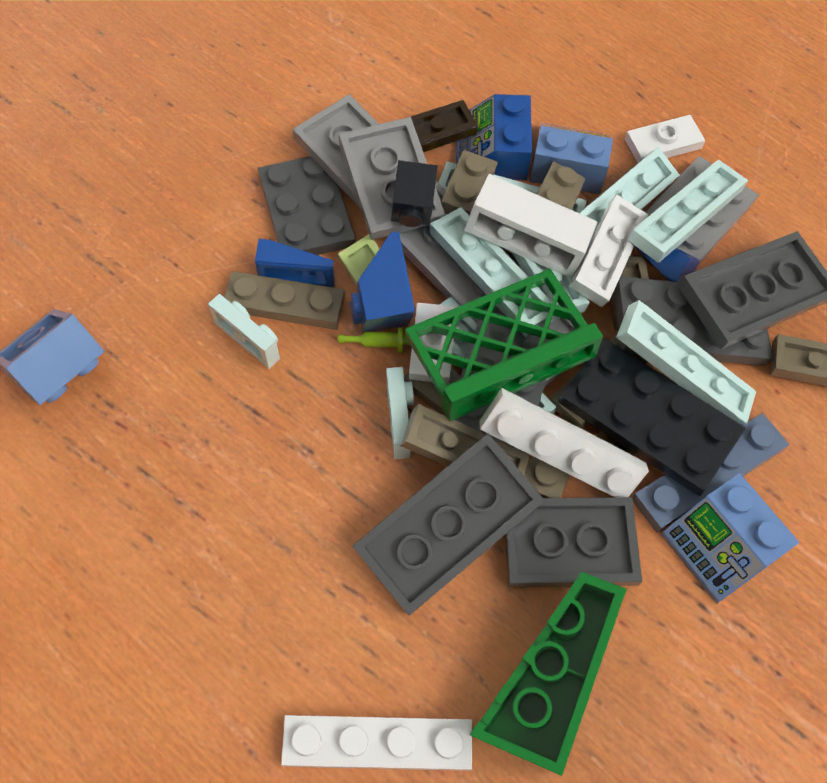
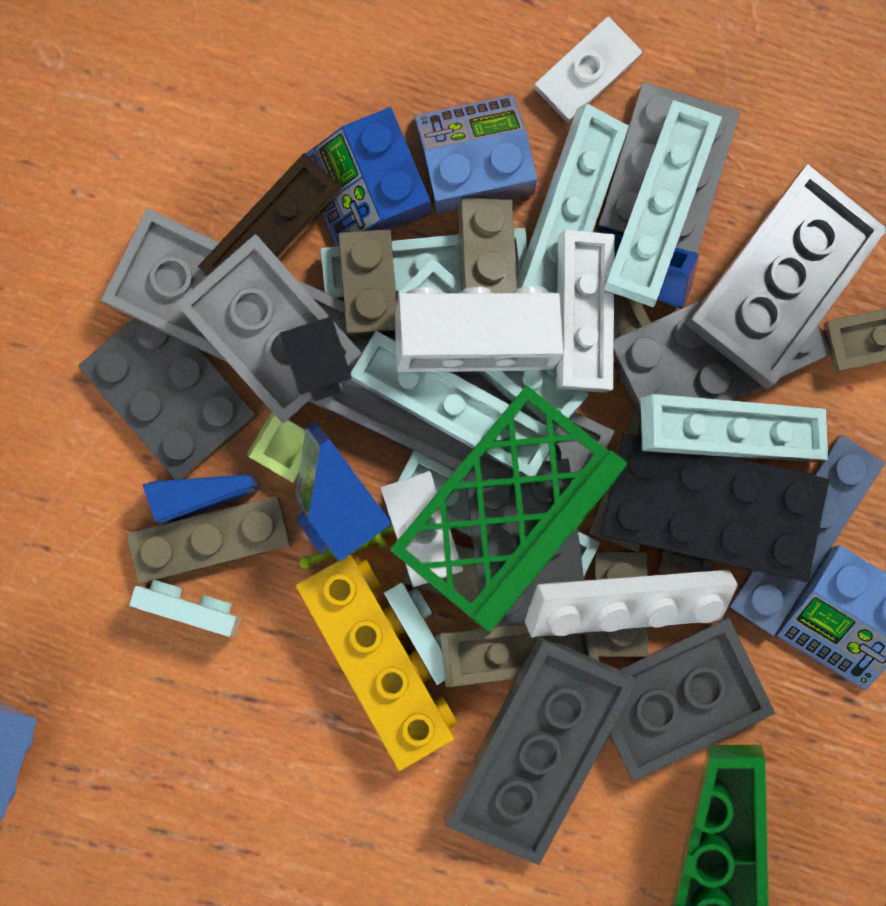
camera: 20 degrees left, 20 degrees up
(357, 420) = (376, 661): none -> yellow brick

